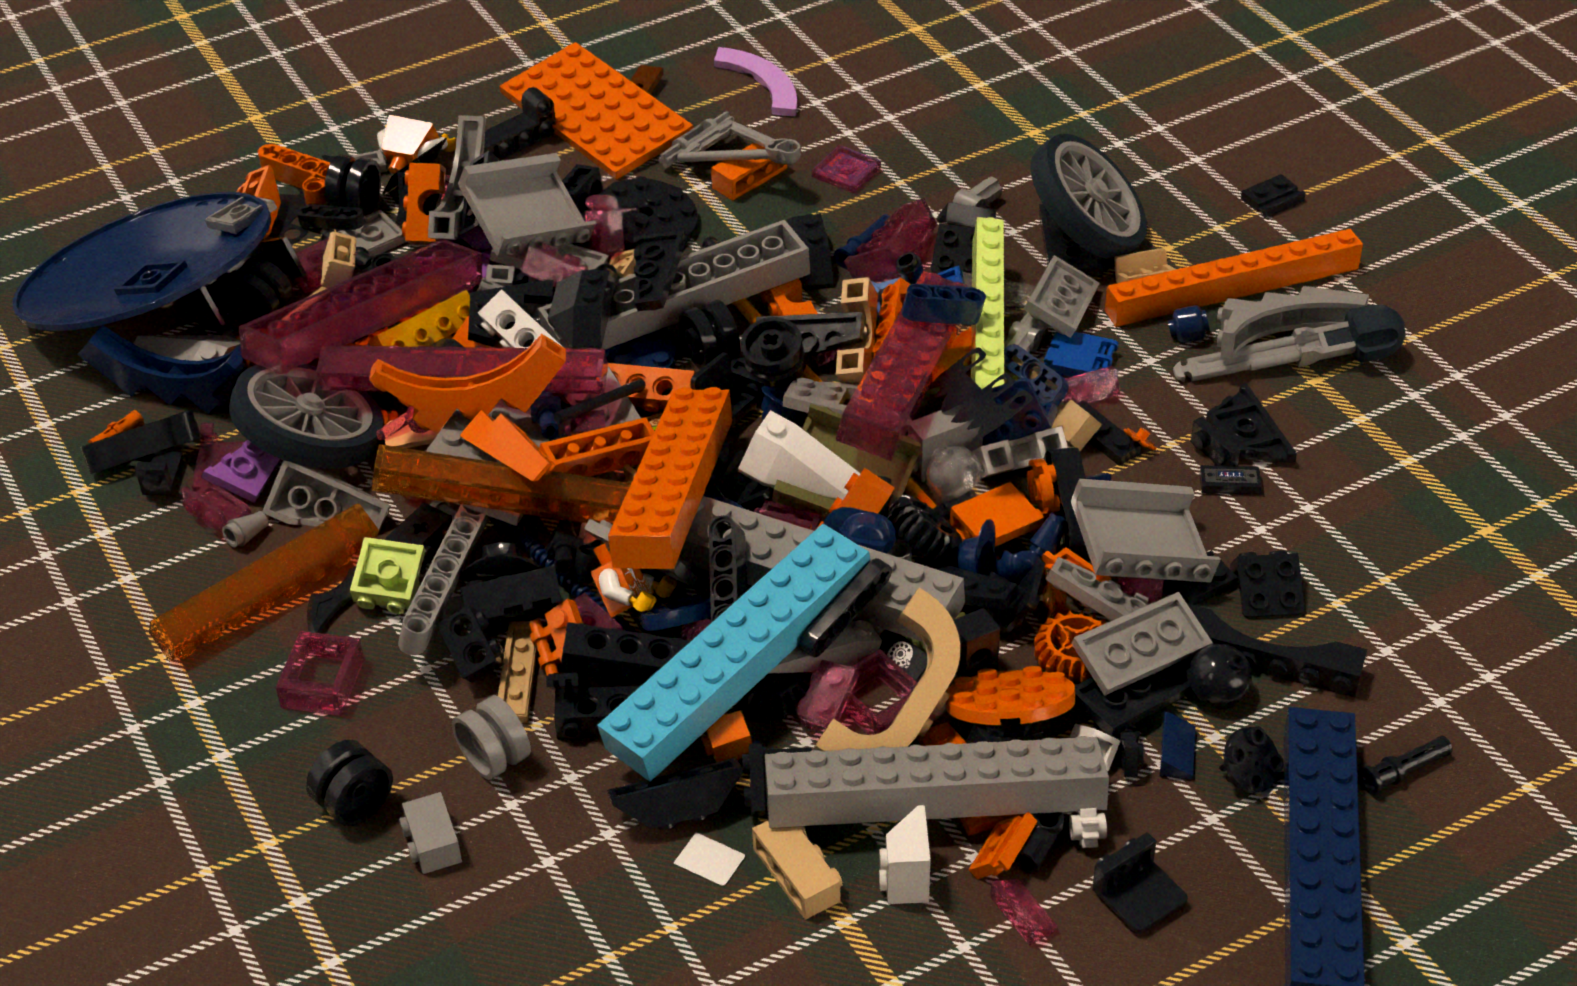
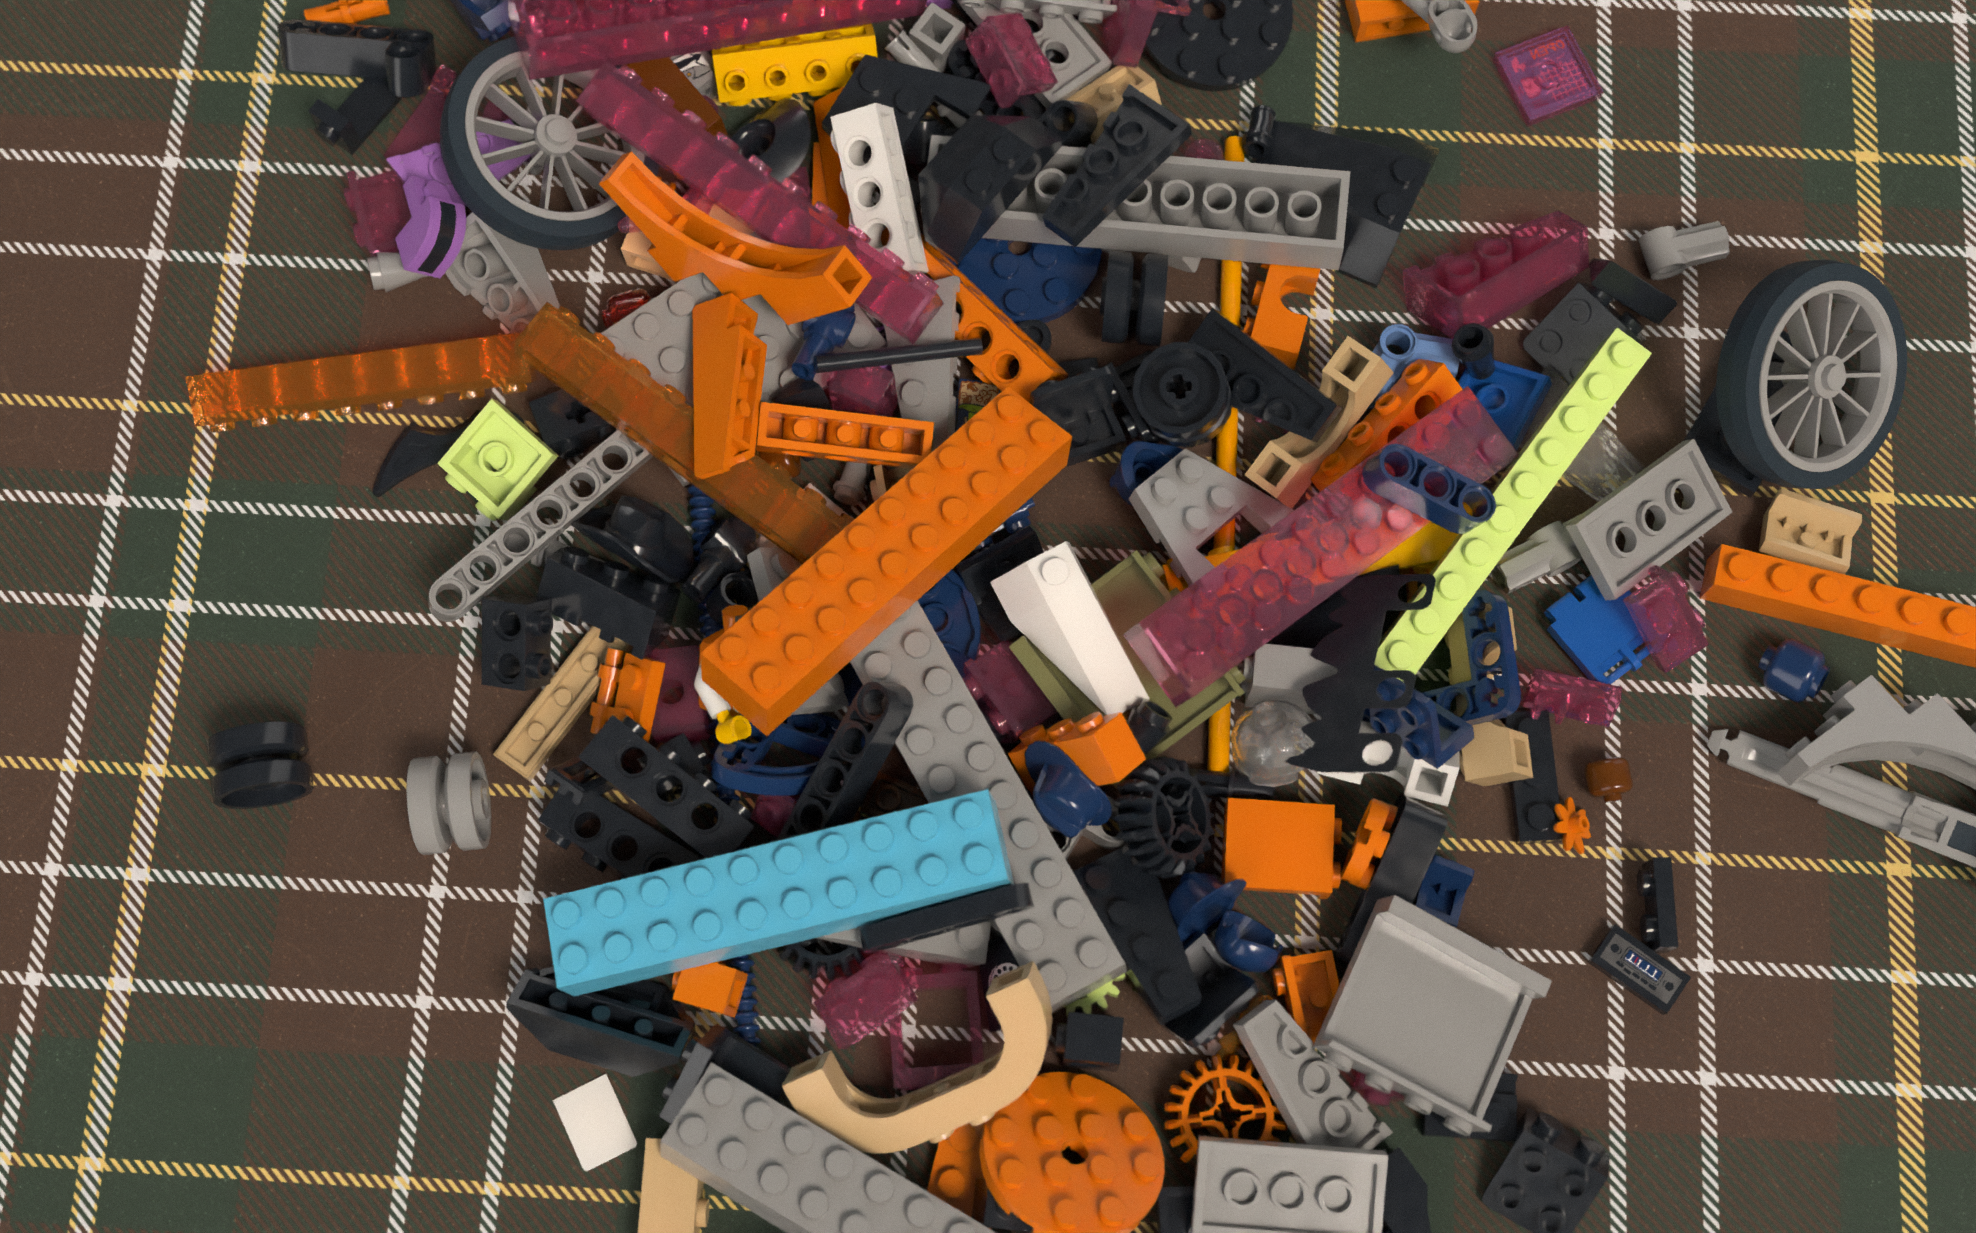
camera: 35 degrees right, 30 degrees up
(263, 486) = (435, 230): none -> medium lavender brick
(328, 698) = (367, 584): clear pink window -> none
(431, 833) = (314, 885): light grey brick -> none
(855, 241) = (1459, 238): dark blue pin -> none
(1048, 535) = (1318, 922): dark blue cone -> none
(1108, 327) = (1667, 619): none -> clear pink bracket
(1140, 409) = (1608, 778): none -> reddish brown piece
(1251, 428) = (1729, 902): black wing -> none

